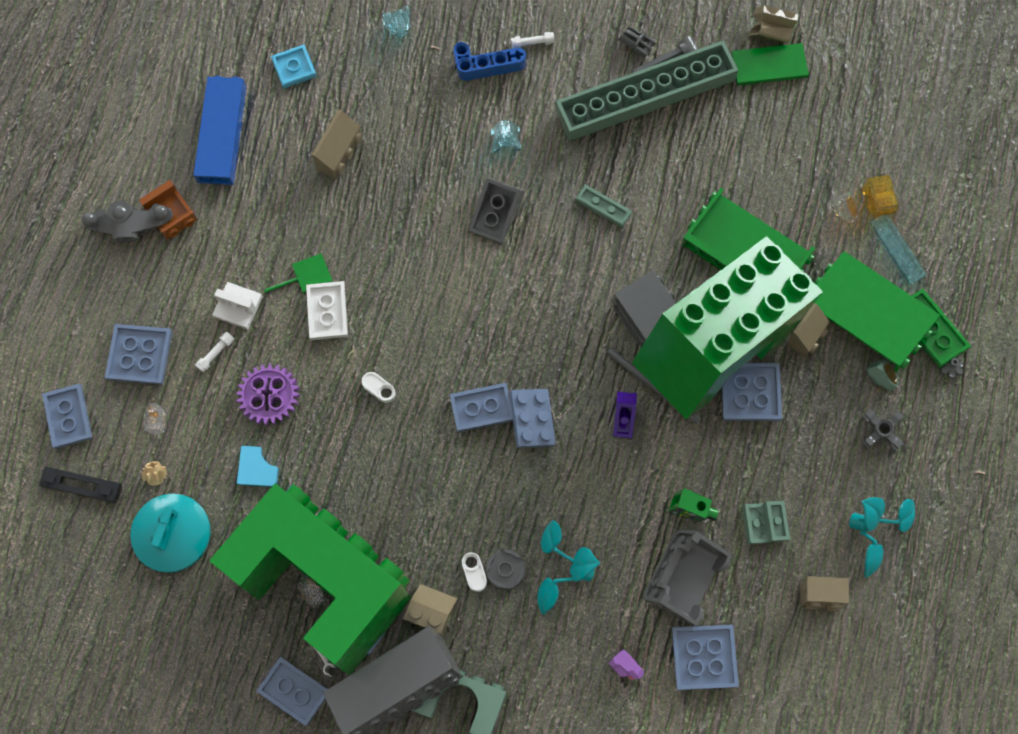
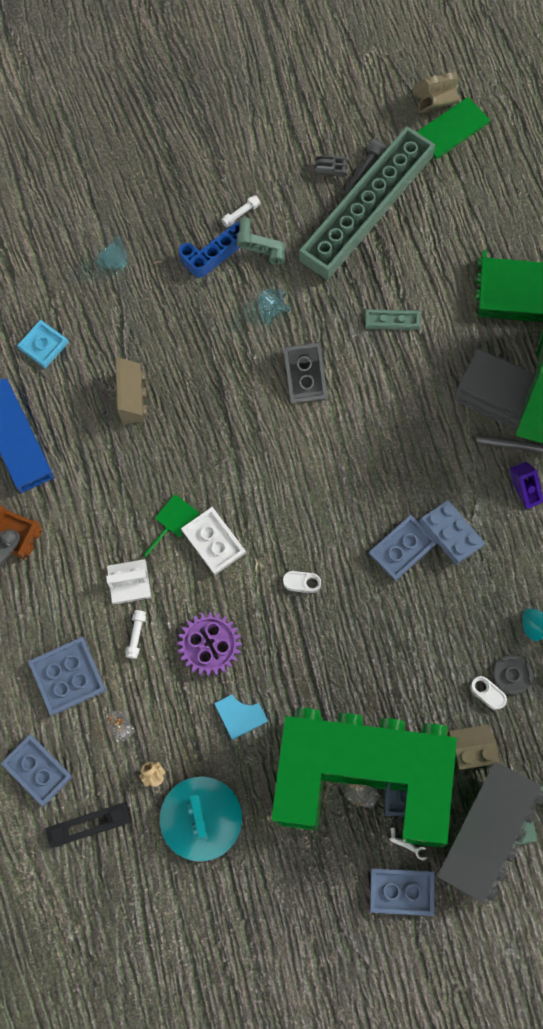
camera: 30 degrees left, 0 degrees up
(538, 87) = (260, 244): none -> sand green beam

